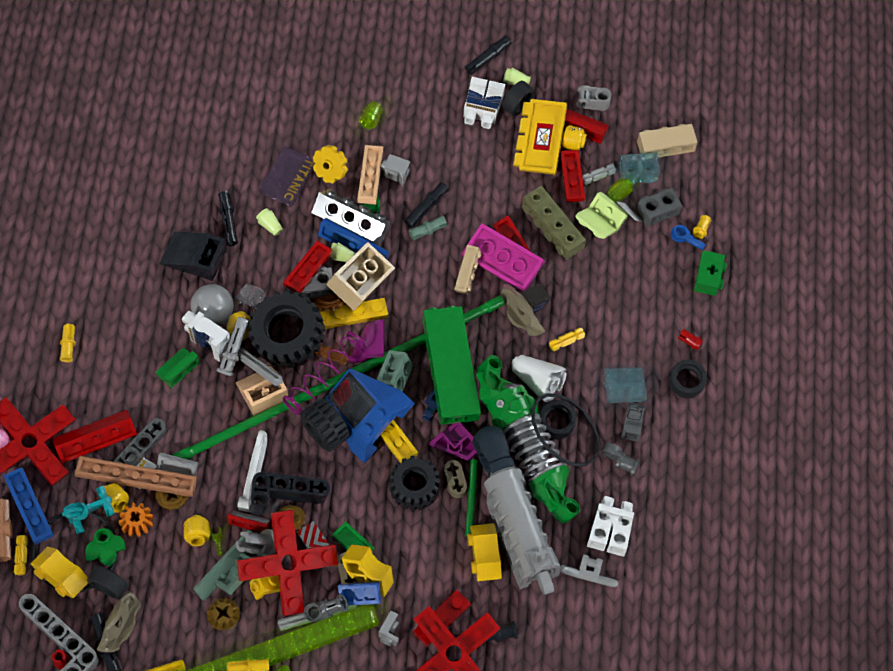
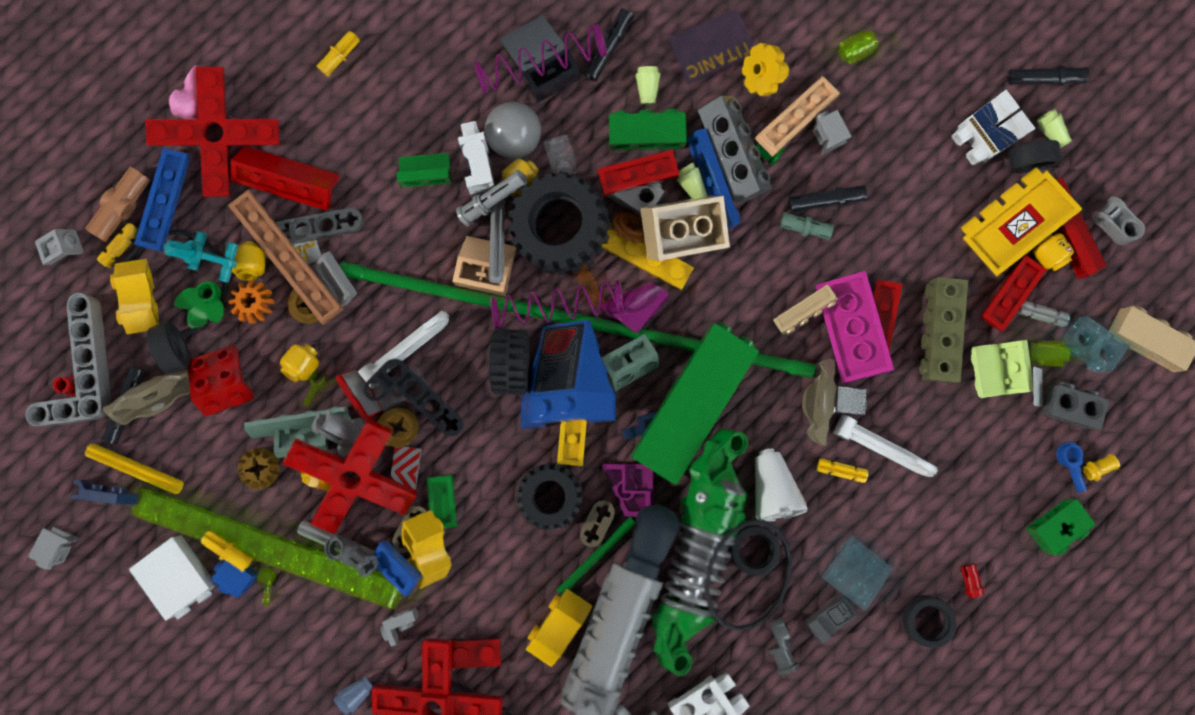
camera: 40 degrees right, 20 degrees up
(155, 581) = (218, 381): none -> red bracket
(172, 277) = (598, 38): none -> magenta piece
(291, 246) = (647, 130): none -> green brick
(549, 314) = (848, 428): none -> white piece

